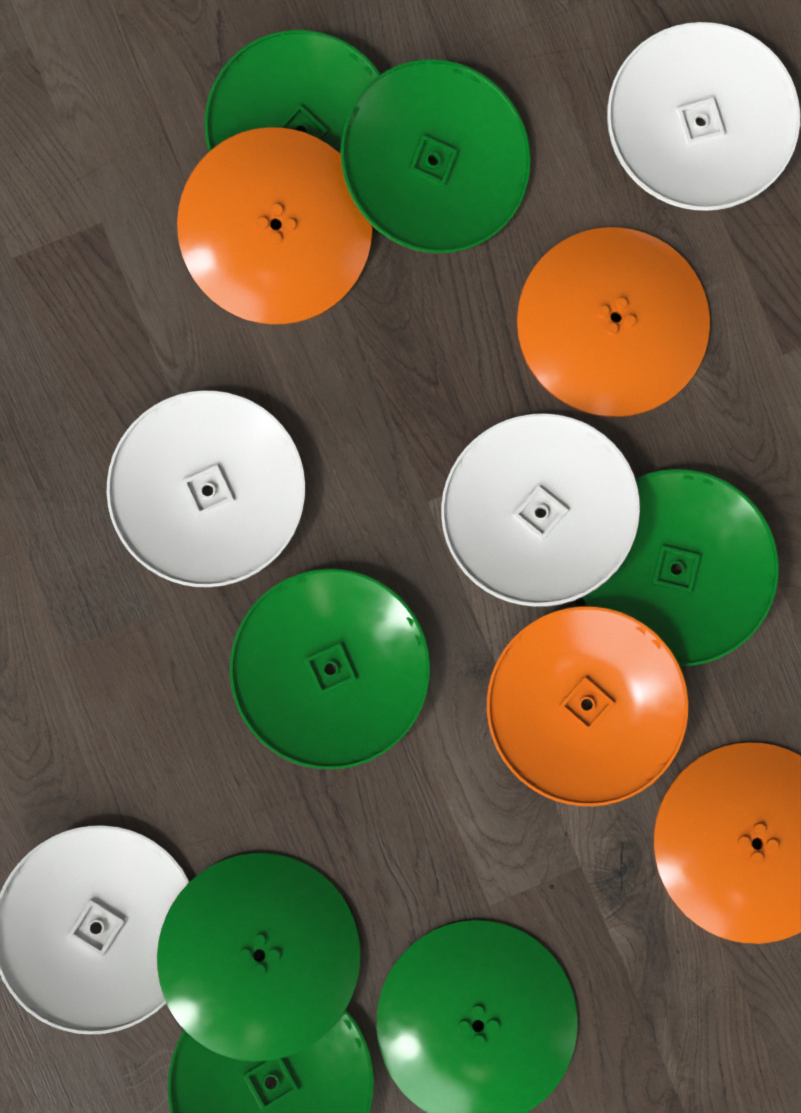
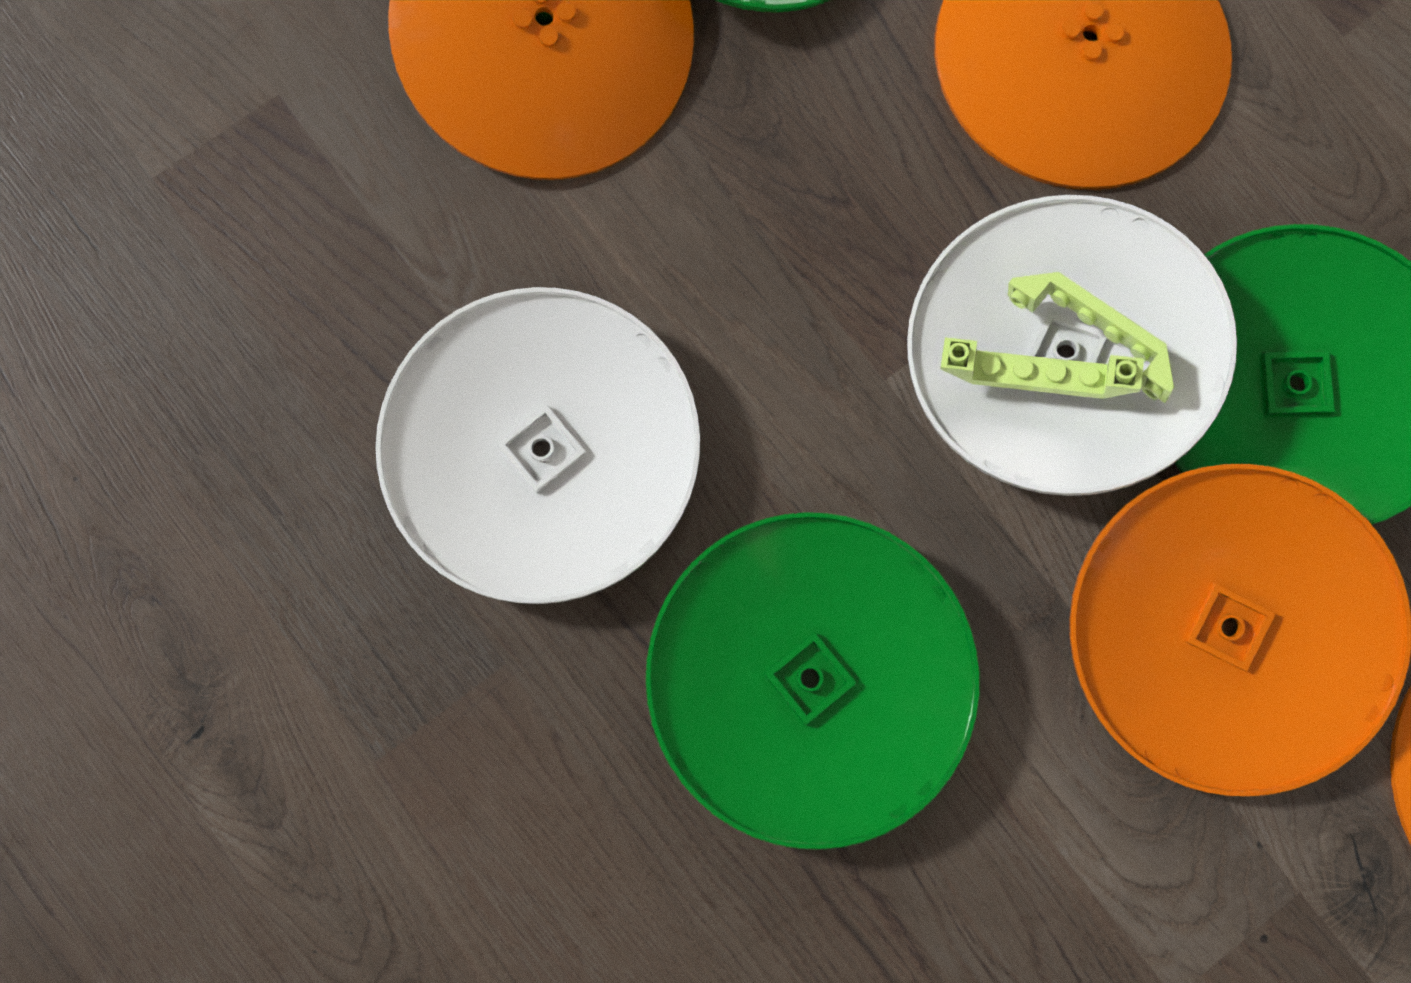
camera: 10 degrees left, 5 degrees down
(514, 523) = (1041, 374): none -> yellowish green slope
(529, 472) = (1032, 290): none -> yellowish green slope

